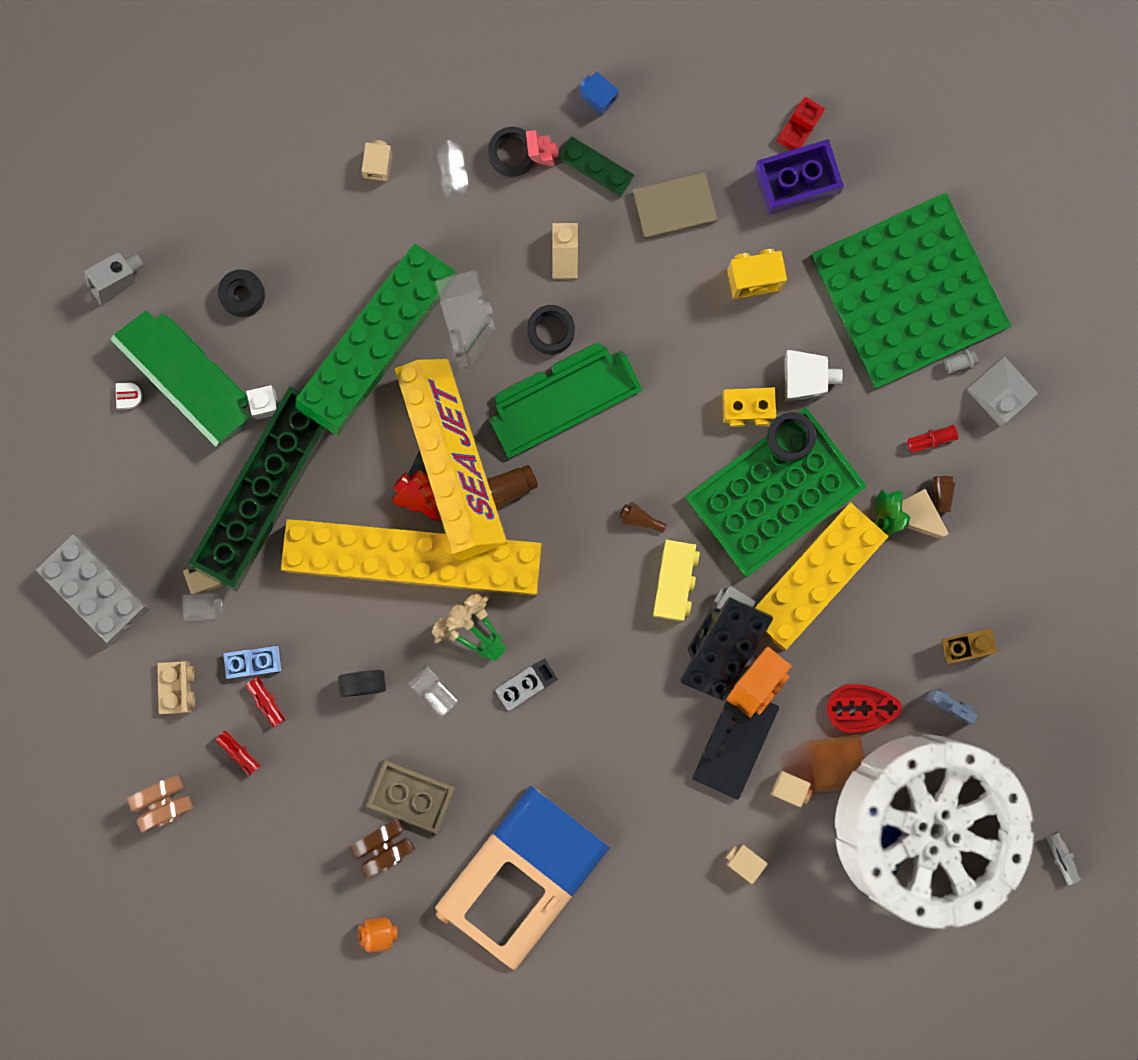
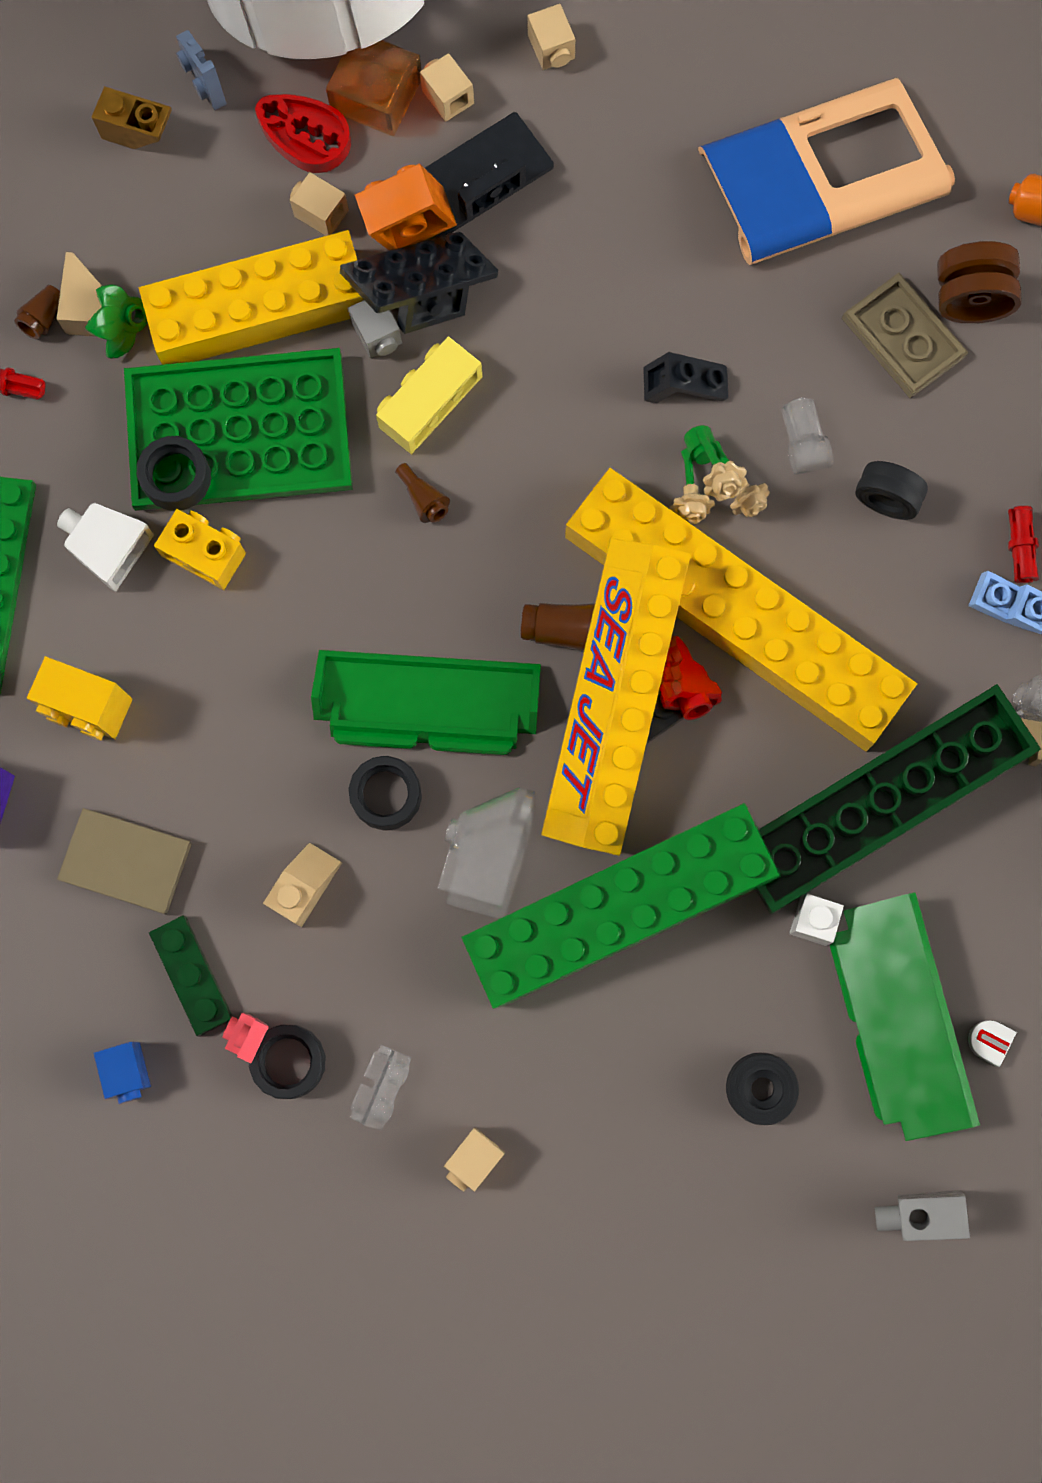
camera: 140 degrees left, 5 degrees down
(820, 662) = (318, 204): none -> tan brick

